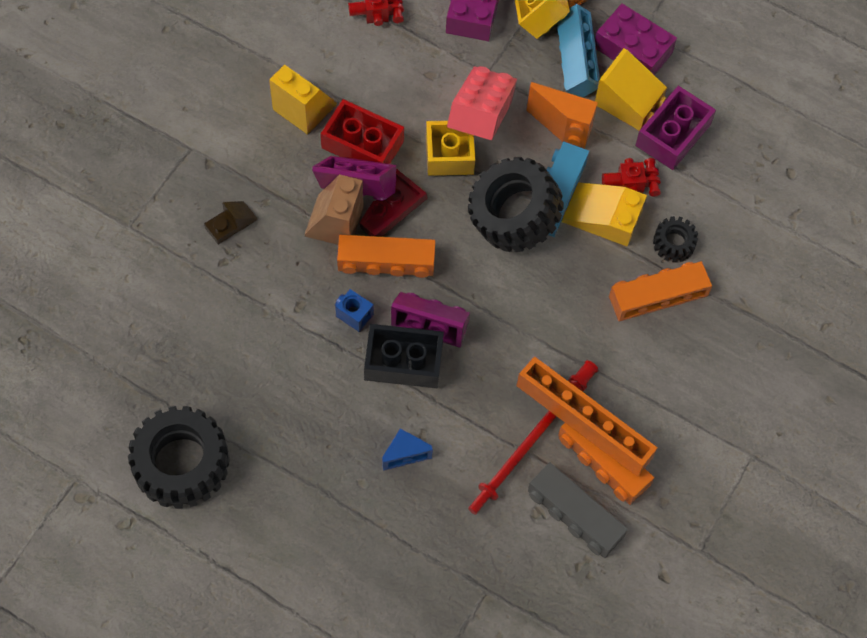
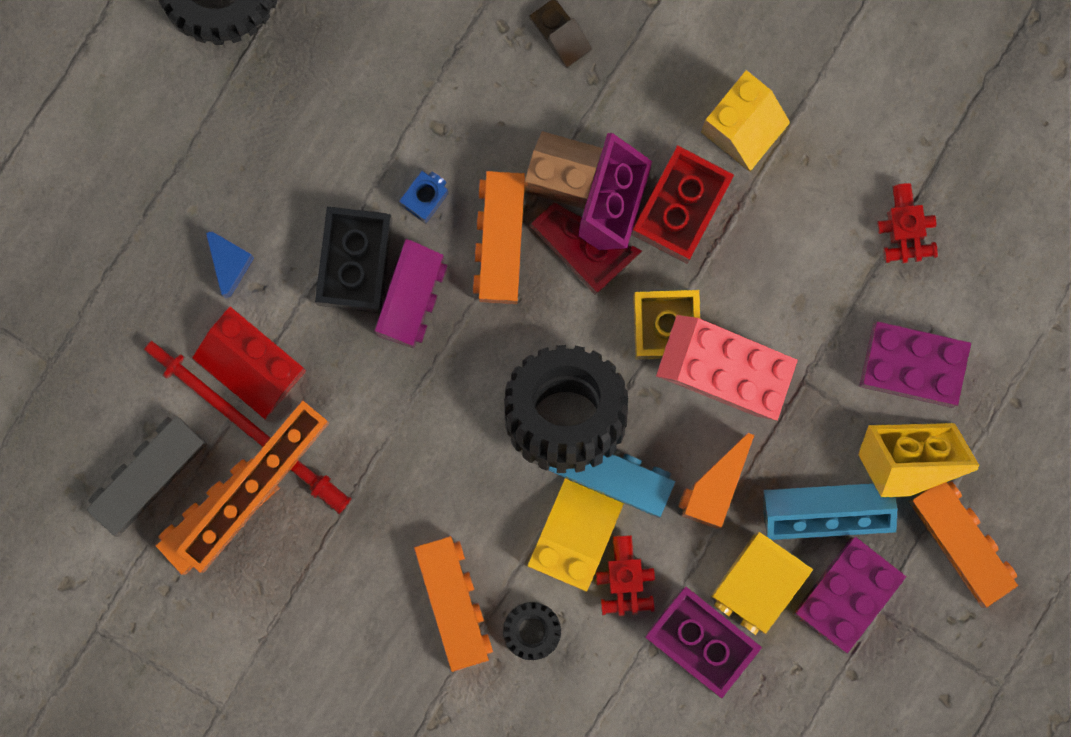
camera: 90 degrees right, 20 degrees up
(483, 434) = (248, 363): none -> red slope

